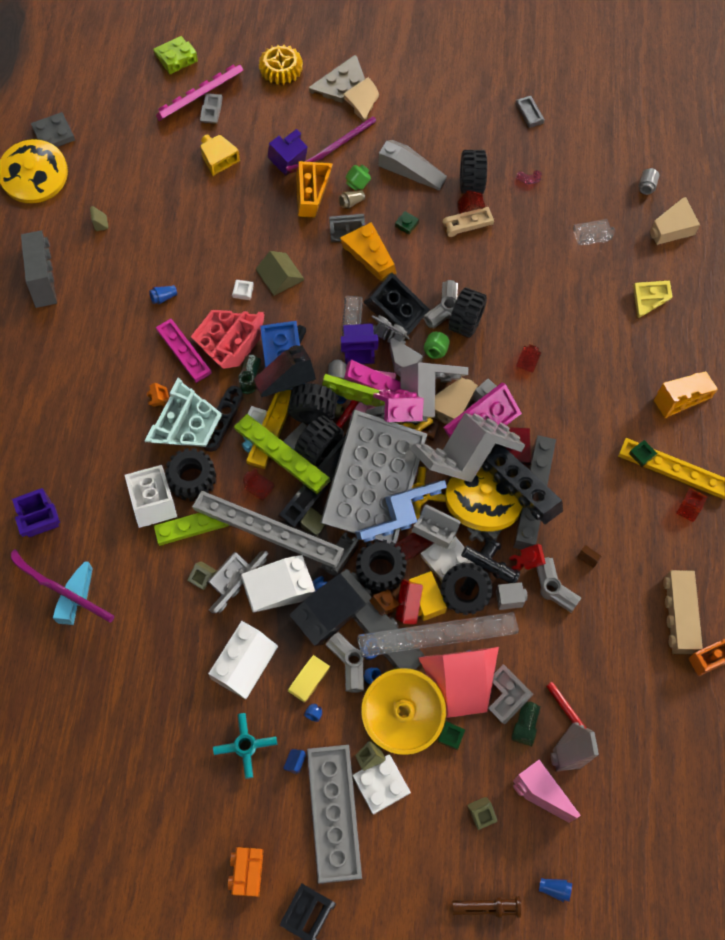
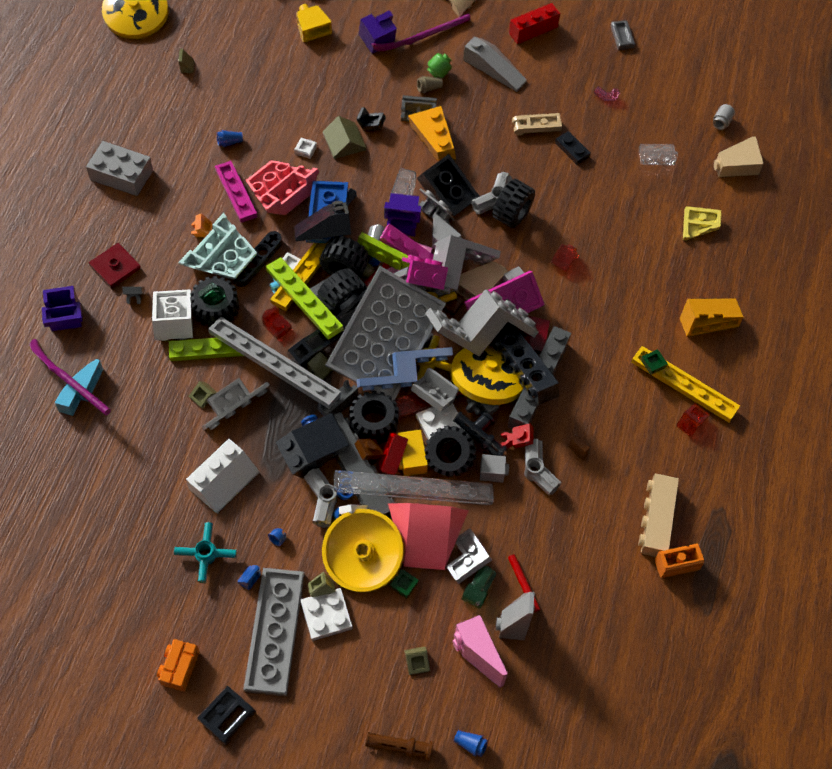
camera: 10 degrees right, 5 degrees down
(38, 268) = (118, 95): dark grey wedge -> none
(58, 347) = (119, 168): none -> light grey brick
(77, 453) = (114, 265): none -> dark red plate
(106, 478) = (134, 291): none -> dark grey tile
(187, 469) = (211, 294): none -> clear green plate
(249, 372) = (295, 216): clear green piece -> none
(278, 584) = (271, 413): white slope -> none
(302, 249) = (371, 121): none -> black bracket
(308, 678) = (280, 505): light yellow slope -> none
(311, 184) = (394, 64): light orange wedge -> none
(383, 670) = (351, 508): none -> white tile
(406, 222) = (477, 115): dark green plate -> none
(436, 345) = (478, 229): bright green head -> none
(441, 115) = (534, 23): none -> red brick
(470, 201) = (543, 104): clear red bracket -> none
(473, 171) = (551, 78): black tyre -> none
(508, 240) = (572, 148): none -> black plate

